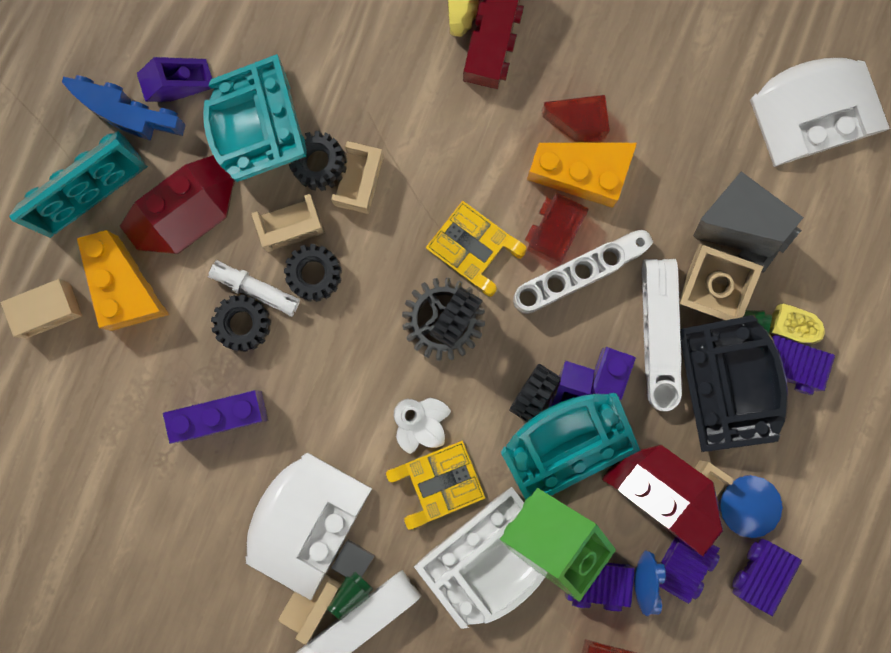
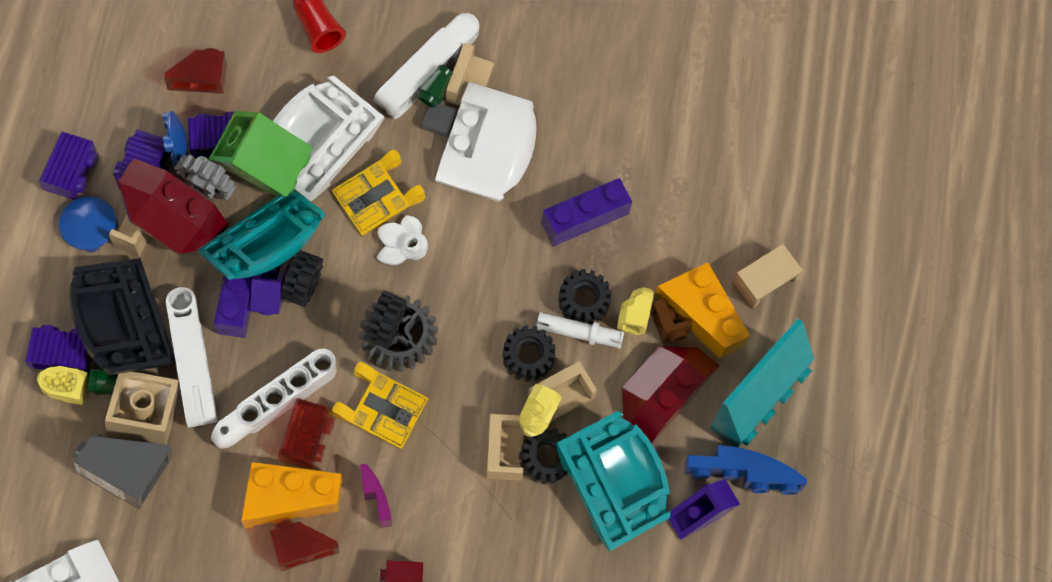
camera: 155 degrees right, 15 degrees down
(163, 282) = (664, 321): none -> reddish brown bracket
(189, 297) = (636, 311): none -> light yellow rock
(316, 195) = (539, 410): none -> light yellow rock
(498, 158) = (373, 490): none -> magenta slope
(622, 528) = (205, 177): none -> light grey gear

